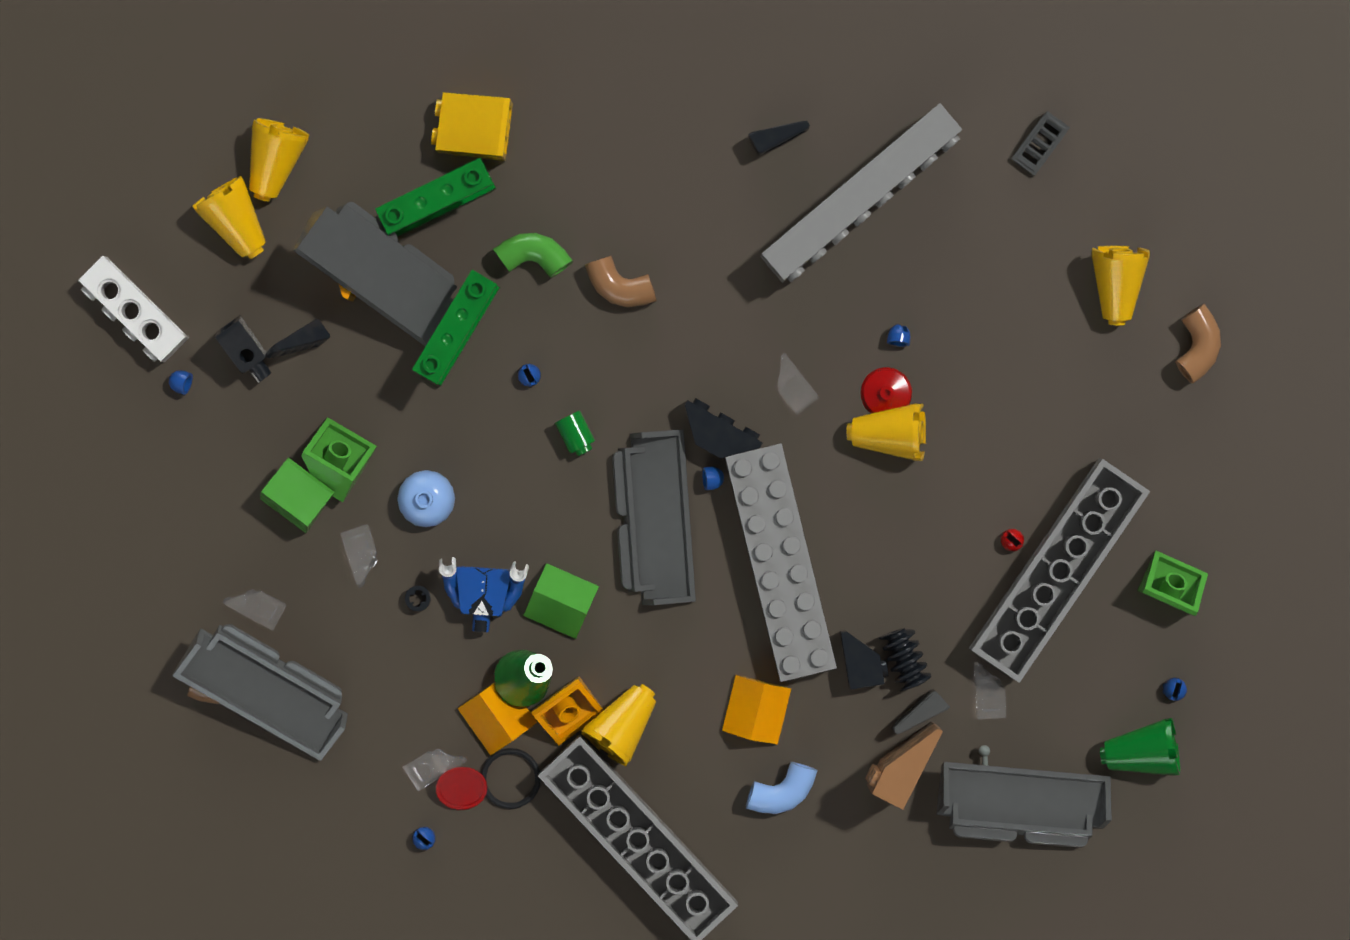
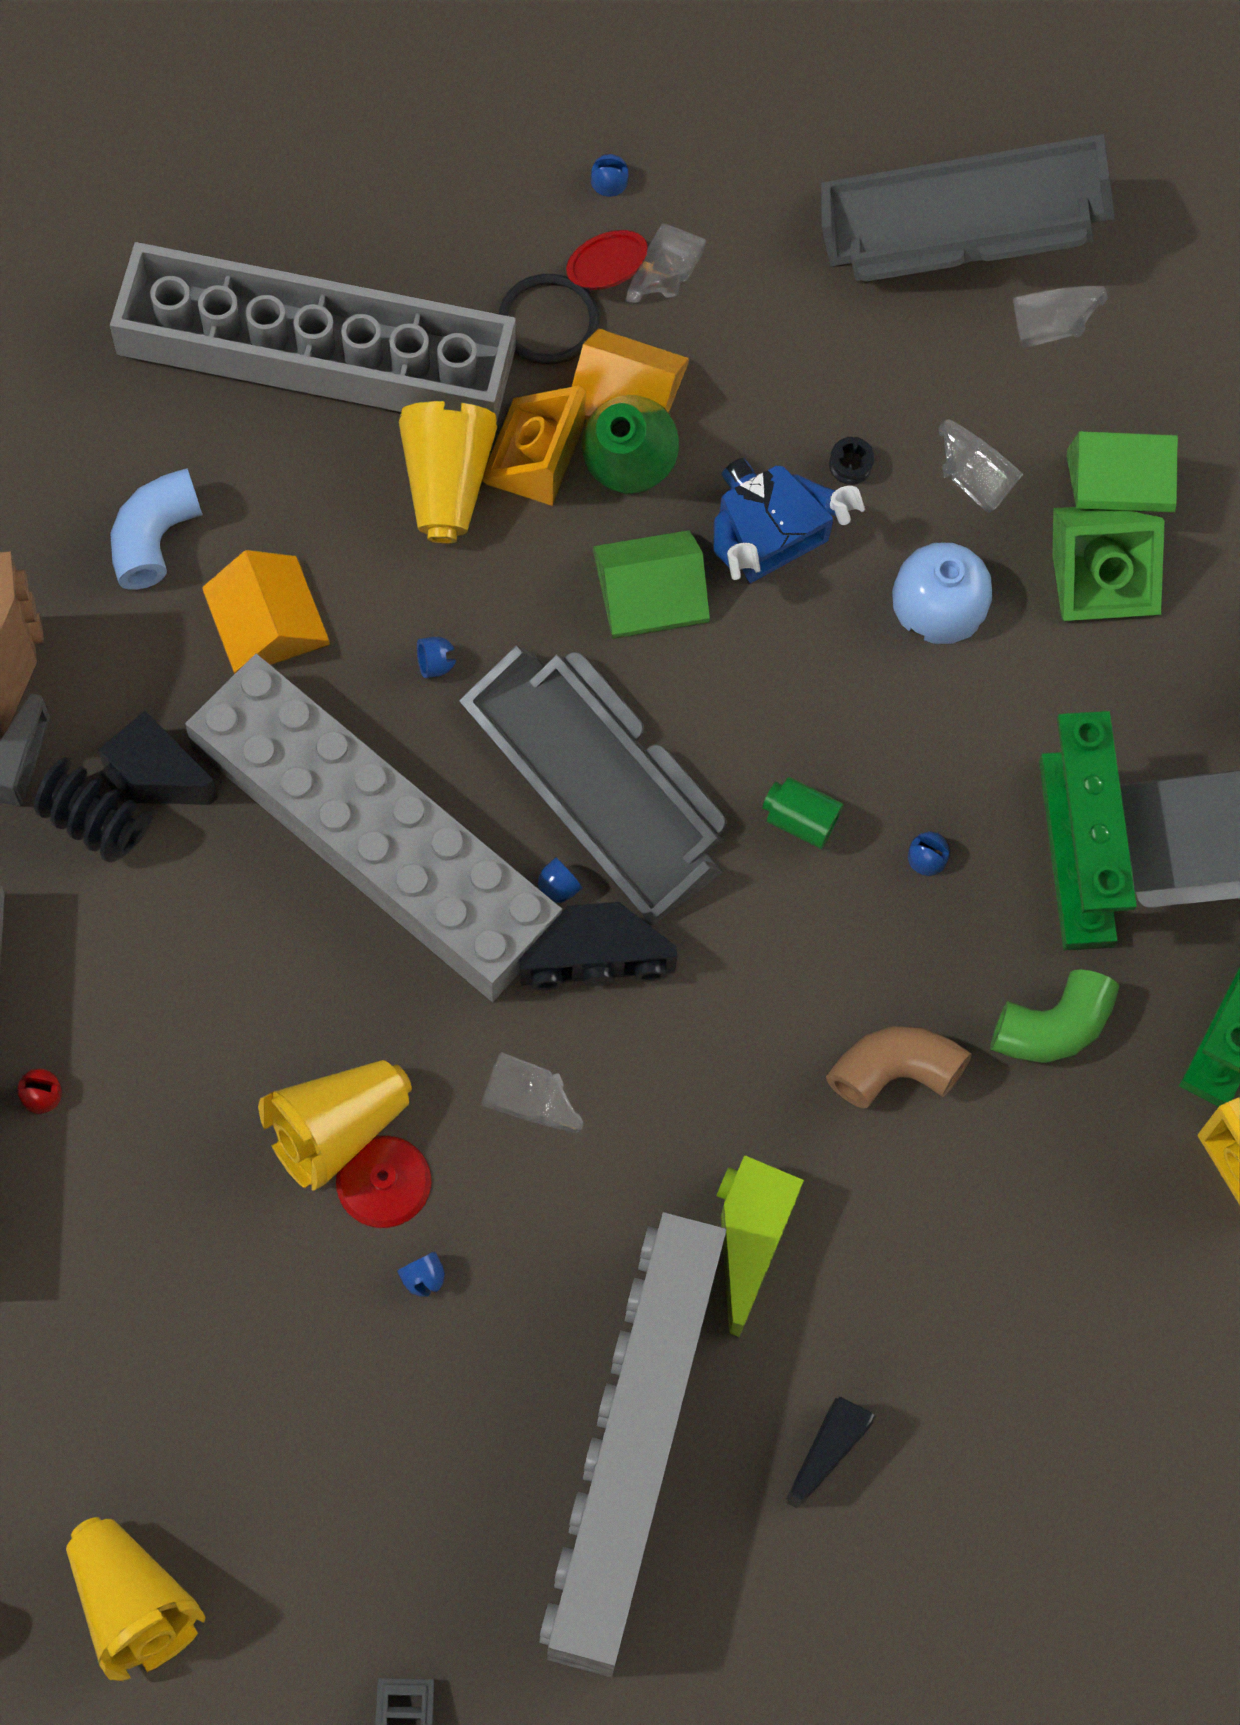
camera: 145 degrees right, 20 degrees down
(691, 631) = (432, 656): none -> blue hinge
(739, 255) = (754, 1219): none -> lime slope

